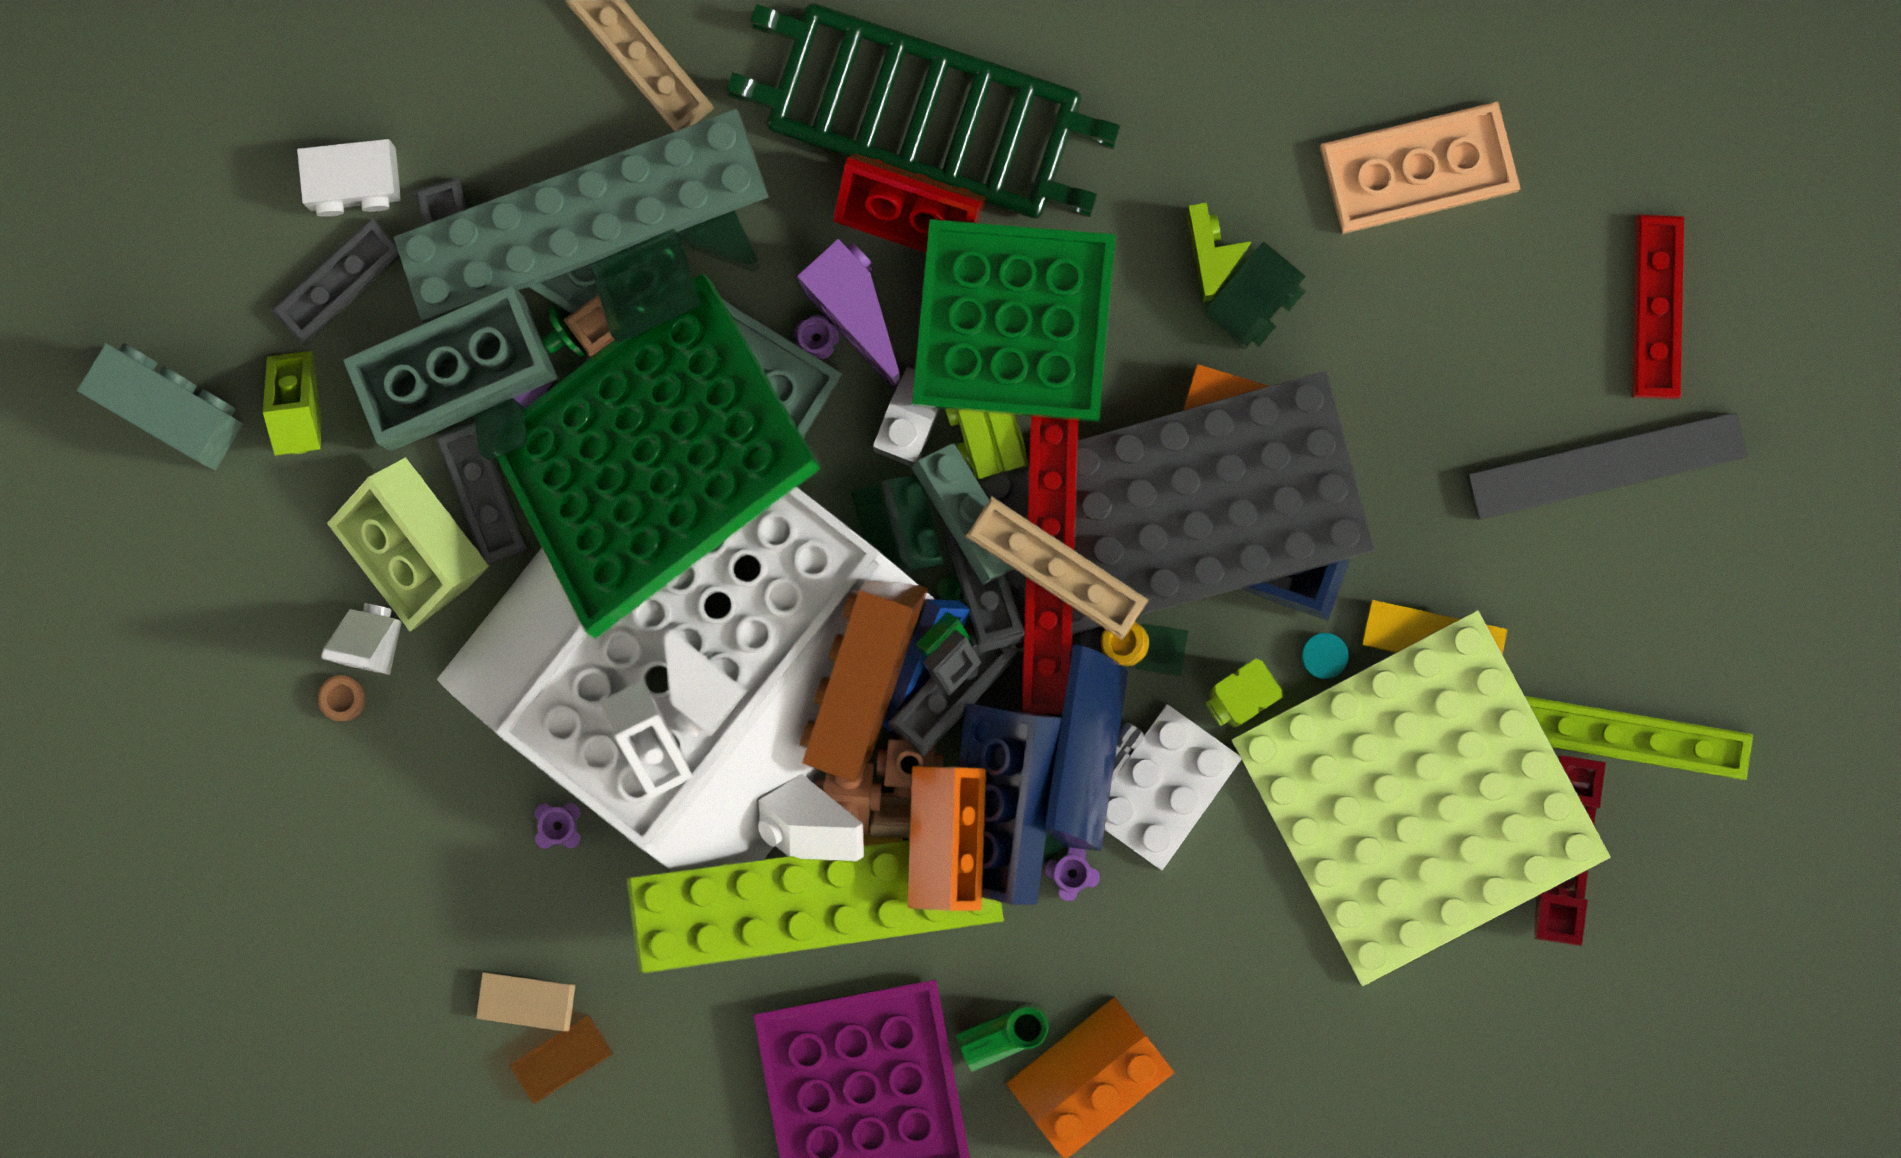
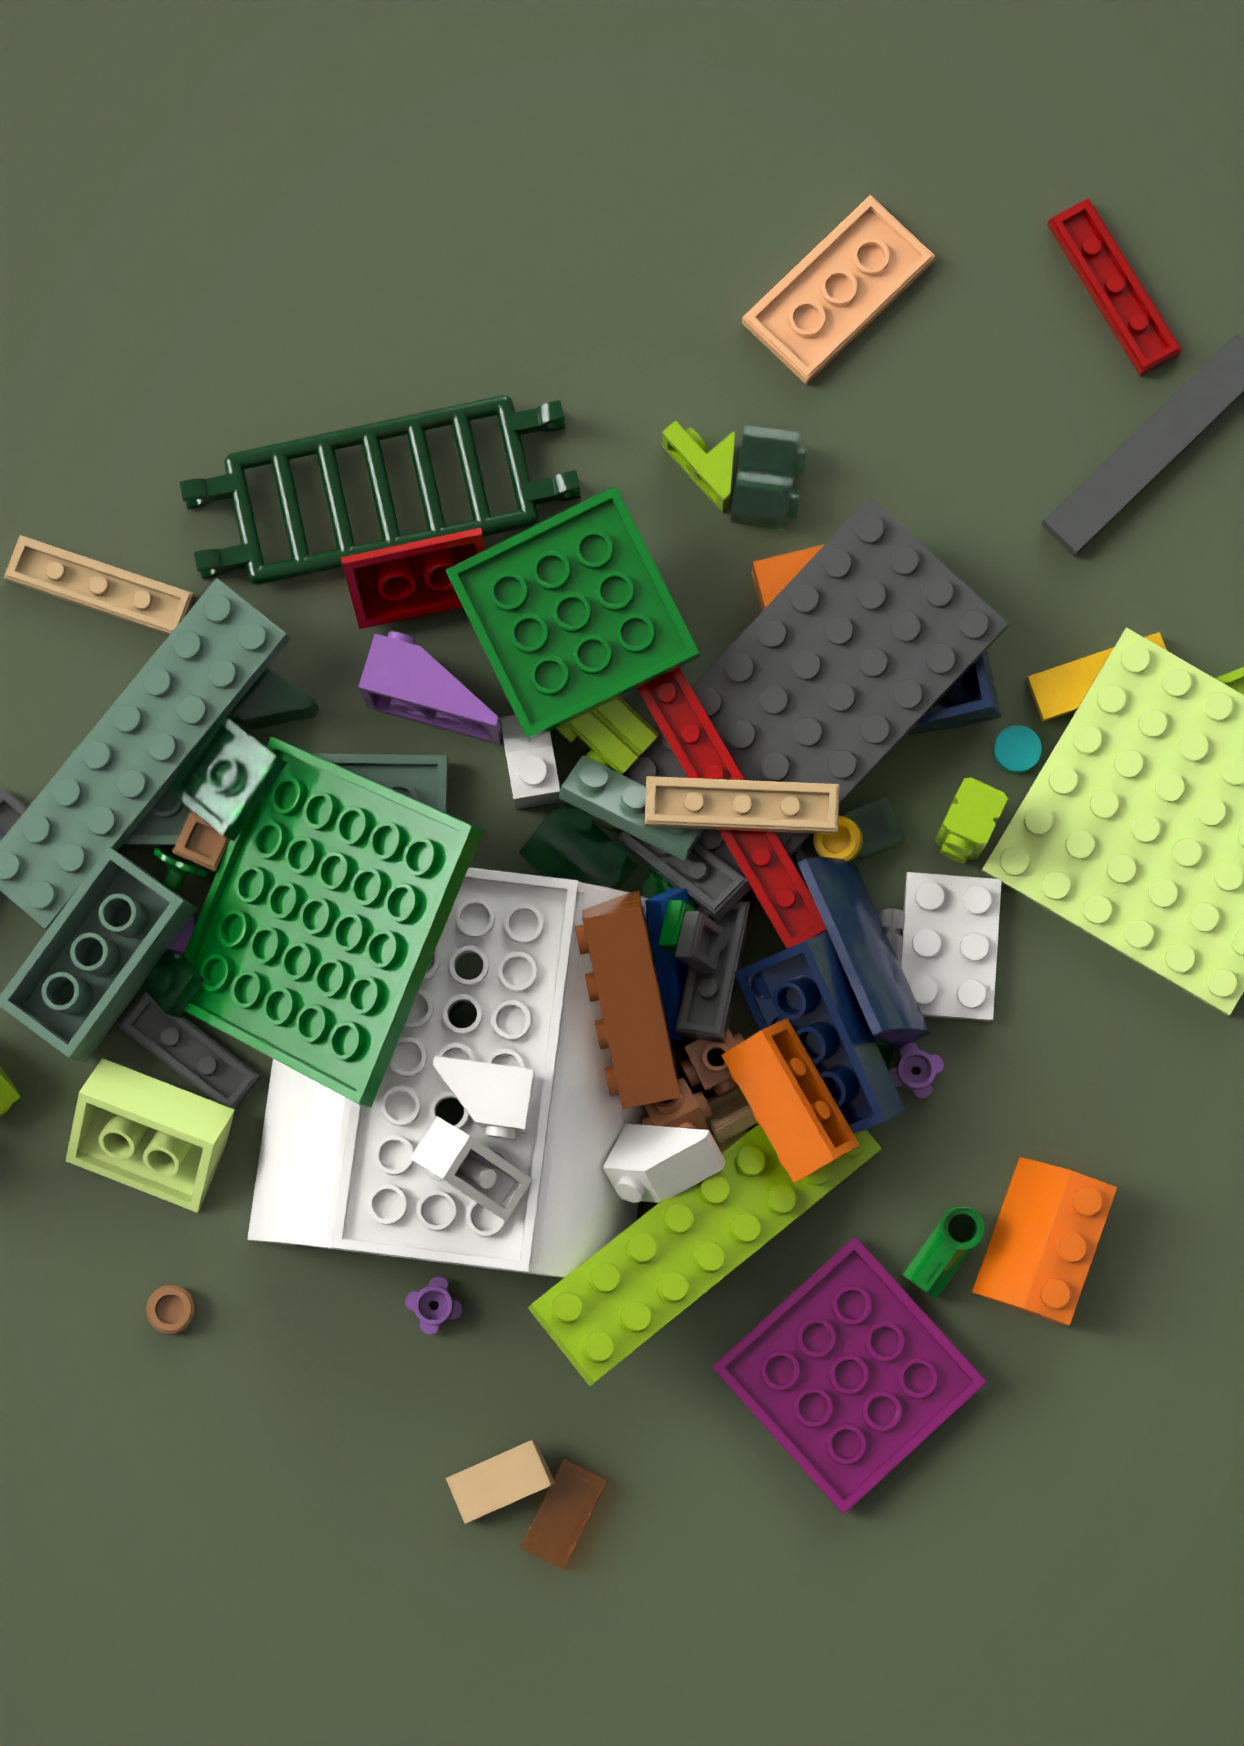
camera: 30 degrees left, 5 degrees down
(365, 640) = (162, 1242): white slope -> none
(820, 325) = (405, 726): medium lavender plate -> none

